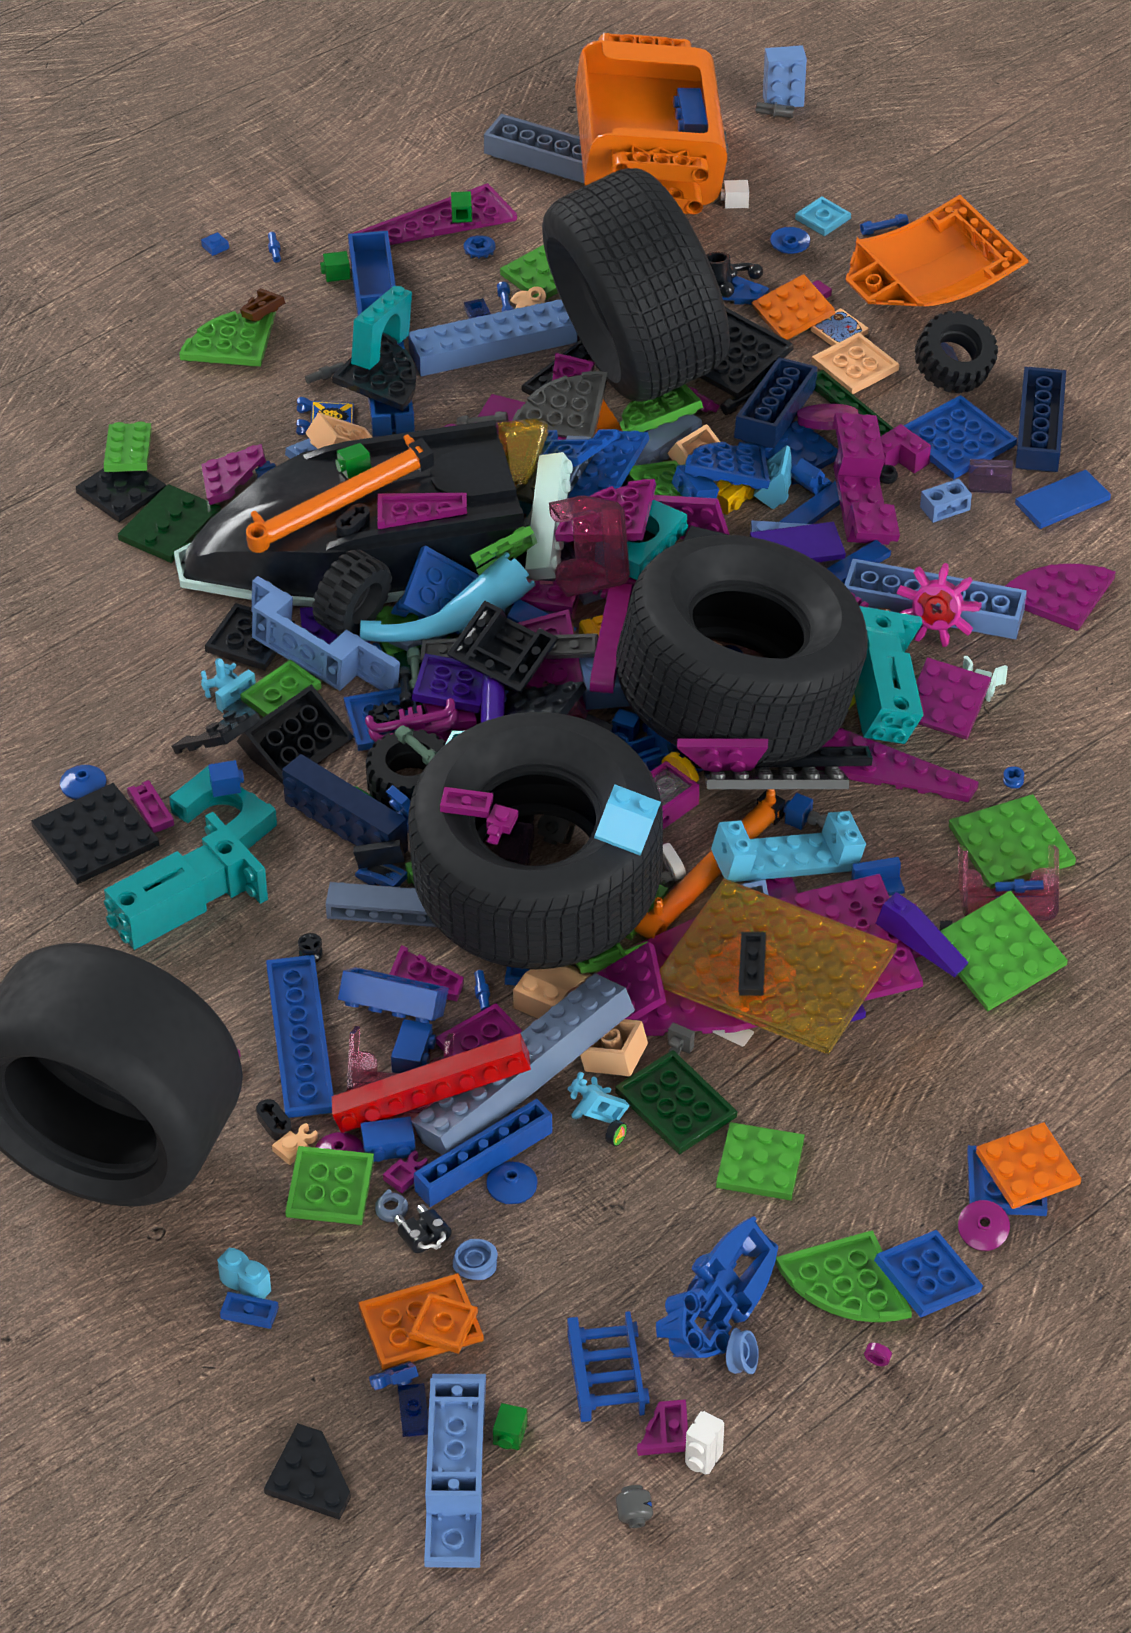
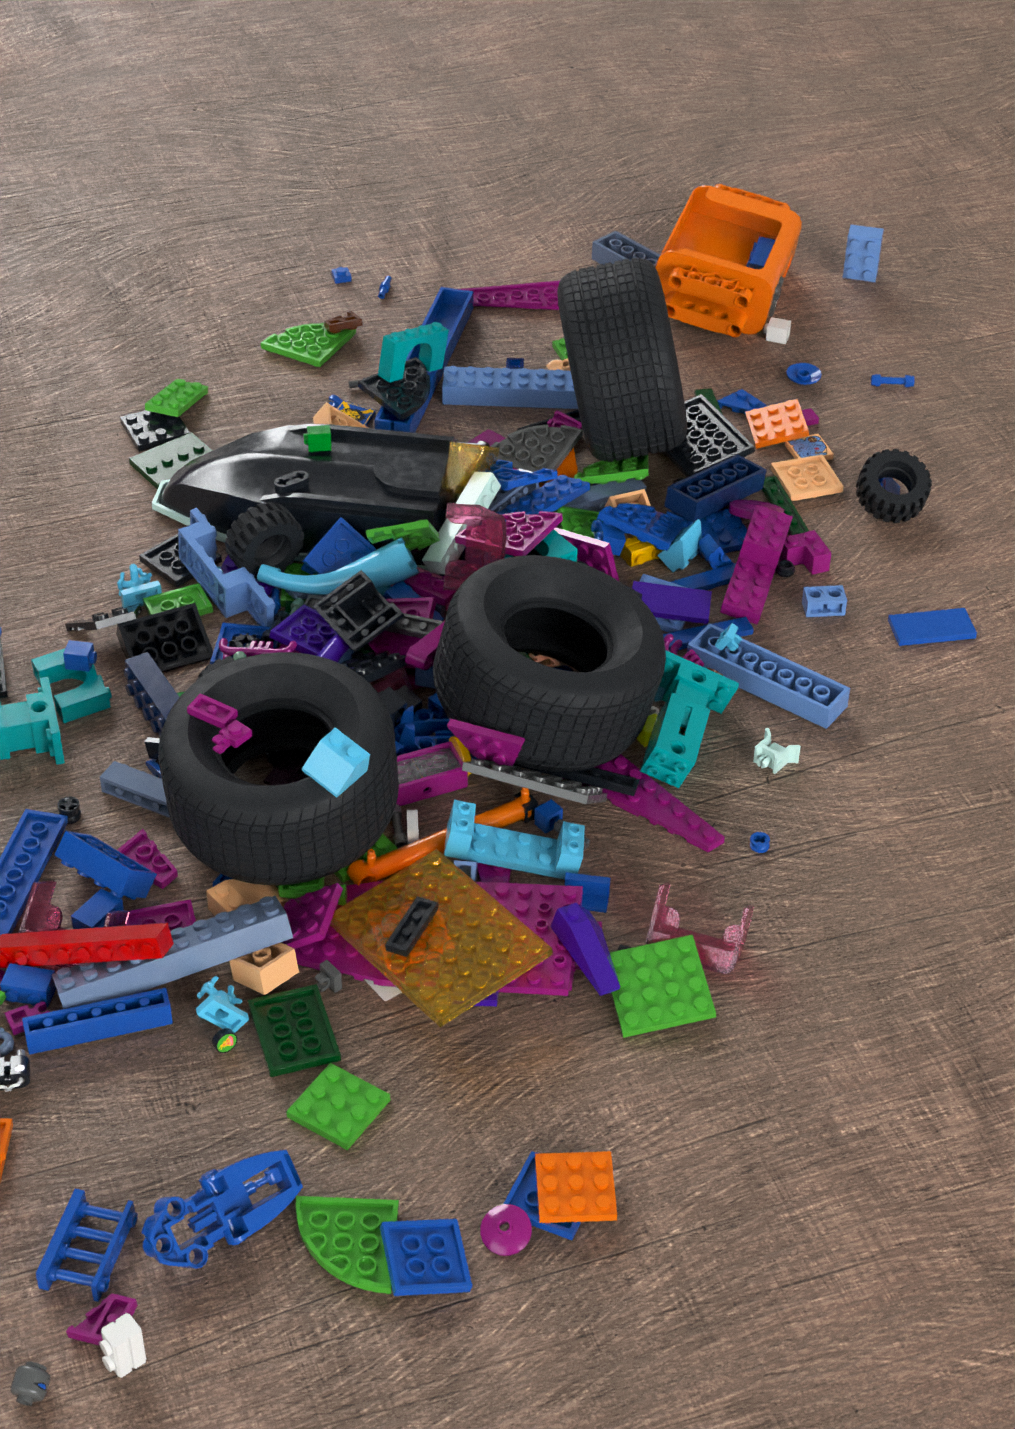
camera: 20 degrees right, 5 degrees down
(150, 806) = (17, 665): magenta plate -> none
(227, 472) = (238, 430): magenta plate -> none
(335, 266) = (419, 309): green brick -> none
(410, 508) = (344, 484): magenta wing -> none
(416, 457) = (214, 473): orange piece -> none
(461, 207) = (544, 288): green brick -> none
(473, 246) = (546, 322): blue gear -> none
(475, 1259) = (36, 1112): medium blue piece -> none
(482, 990) = (188, 885): blue bar -> none
(503, 292) = (545, 358): blue bar -> none
(512, 1190) = (113, 1056): blue dish -> none
(707, 403) = (659, 476): magenta plate -> none
(725, 271) = (725, 384): black wheel -> none
(742, 1352) = (212, 1272): medium blue piece -> none
(774, 109) = (847, 278): dark grey axle -> none
(823, 216) = (844, 363): medium azure tile -> none
(877, 1354) = (337, 1317): magenta tile -> none
(884, 570) = (729, 638): none -> medium azure tile
(933, 259) = (914, 413): orange windscreen -> none
(939, 592) = (761, 677): dark pink gear -> none
(950, 697) = (733, 759): magenta plate -> none
(960, 433) = (866, 555): blue plate -> none
(990, 476) = (876, 592): clear purple panel -> none
(1010, 840) = (720, 890): bright green plate -> none
(1019, 886) = (710, 935): blue bar -> none
(1041, 419) = (943, 557): dark blue brick -> none
(1064, 591) = (891, 701): magenta plate -> none

